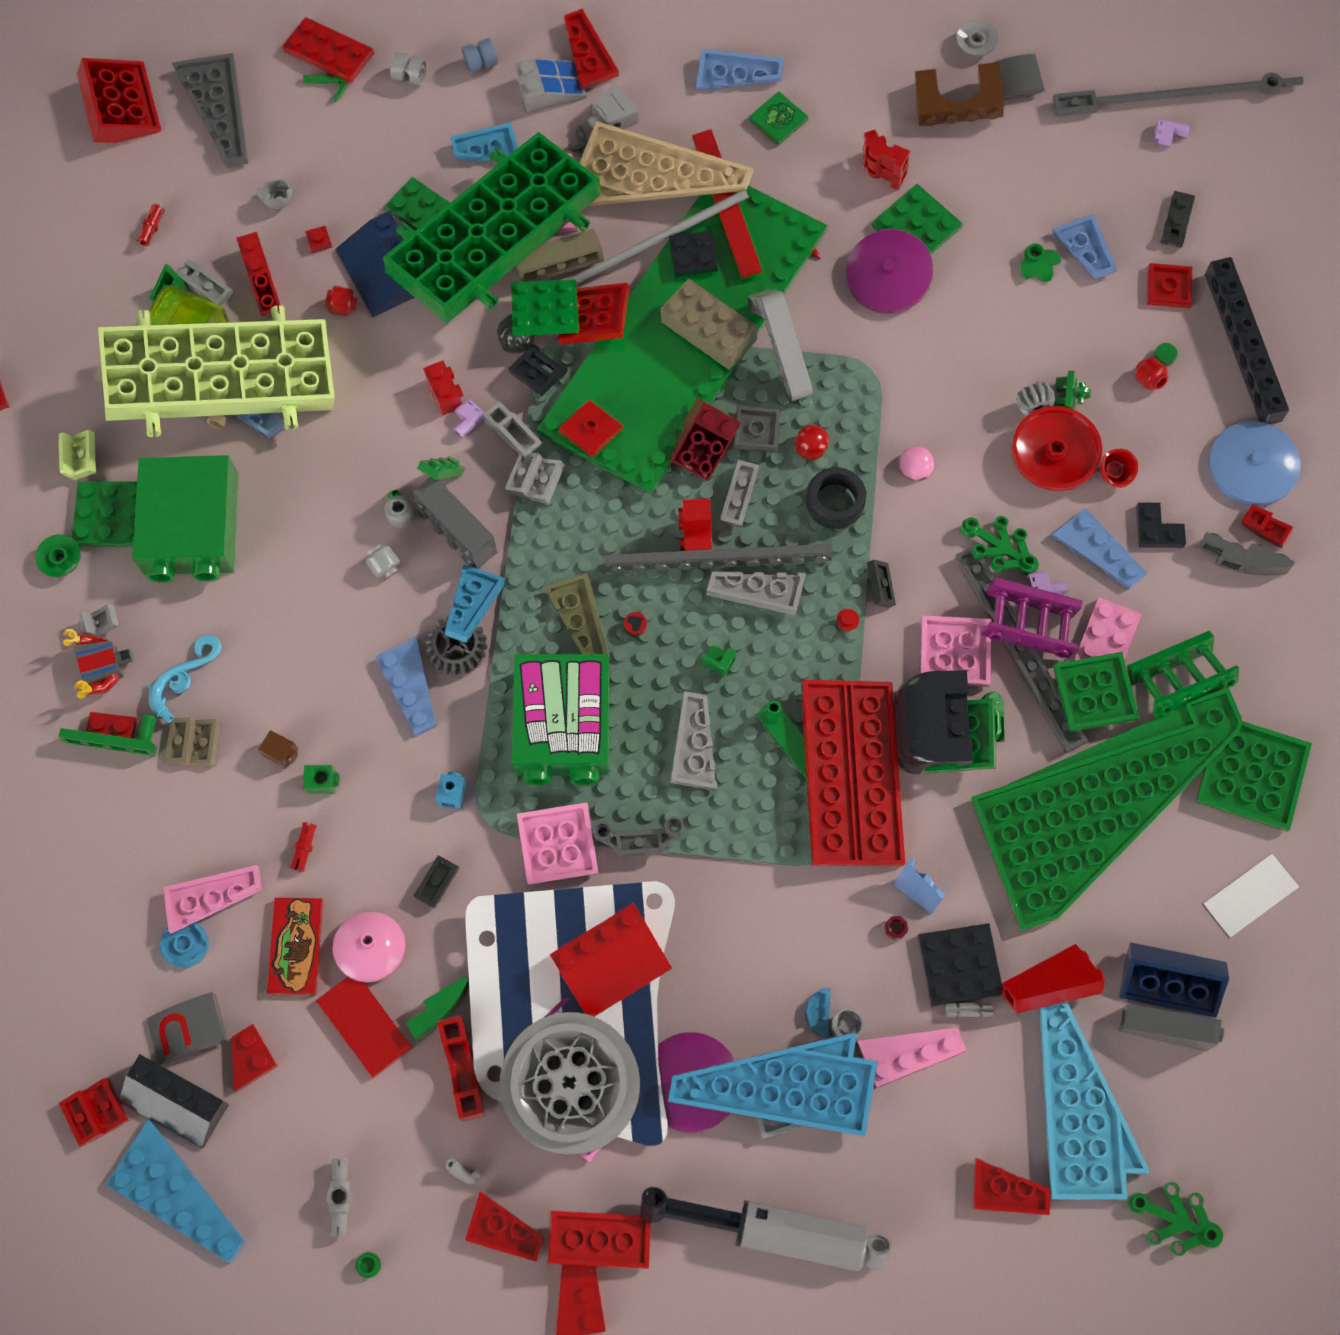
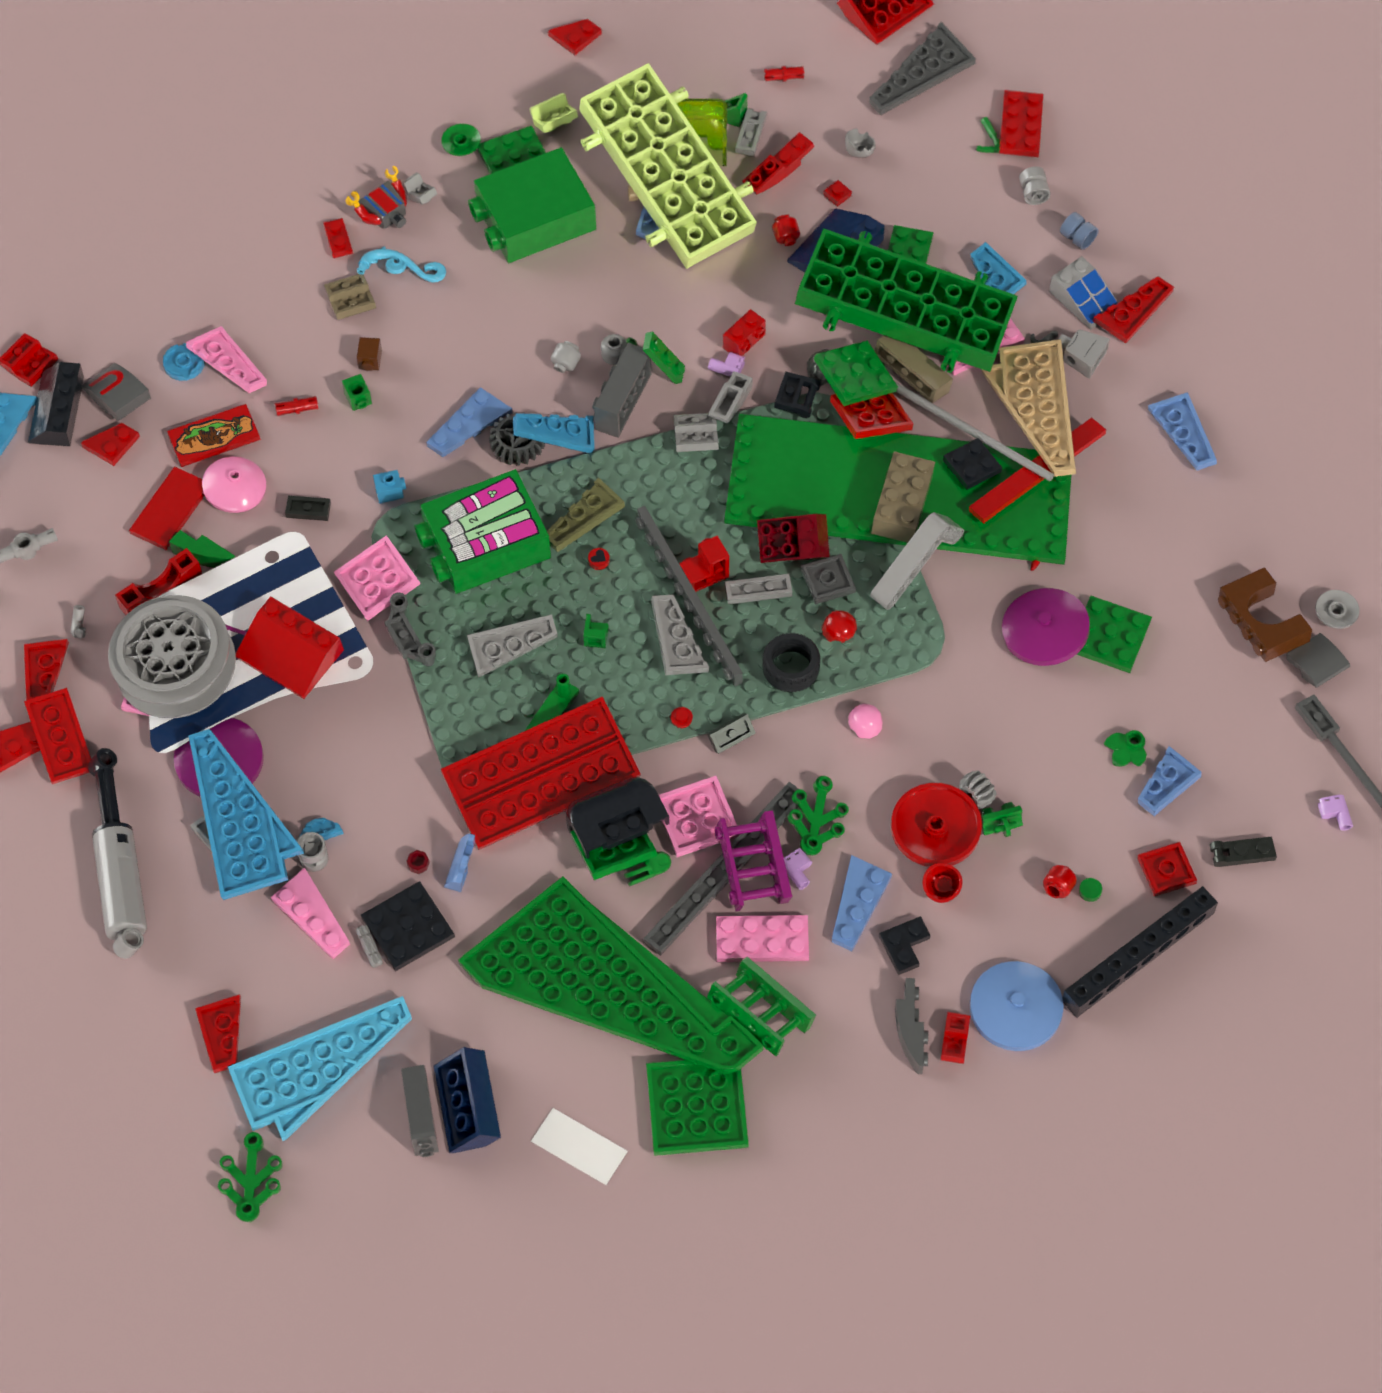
camera: 65 degrees right, 10 degrees down
(141, 745) = (330, 262): green piece -> none
(590, 428) = (756, 449): red plate -> none
(778, 118) = (1156, 482): green tile -> none
(885, 161) = (1155, 577): red hips -> none
(1054, 981) = (420, 998): red slope -> none
(1095, 691) = (707, 938): green plate -> none

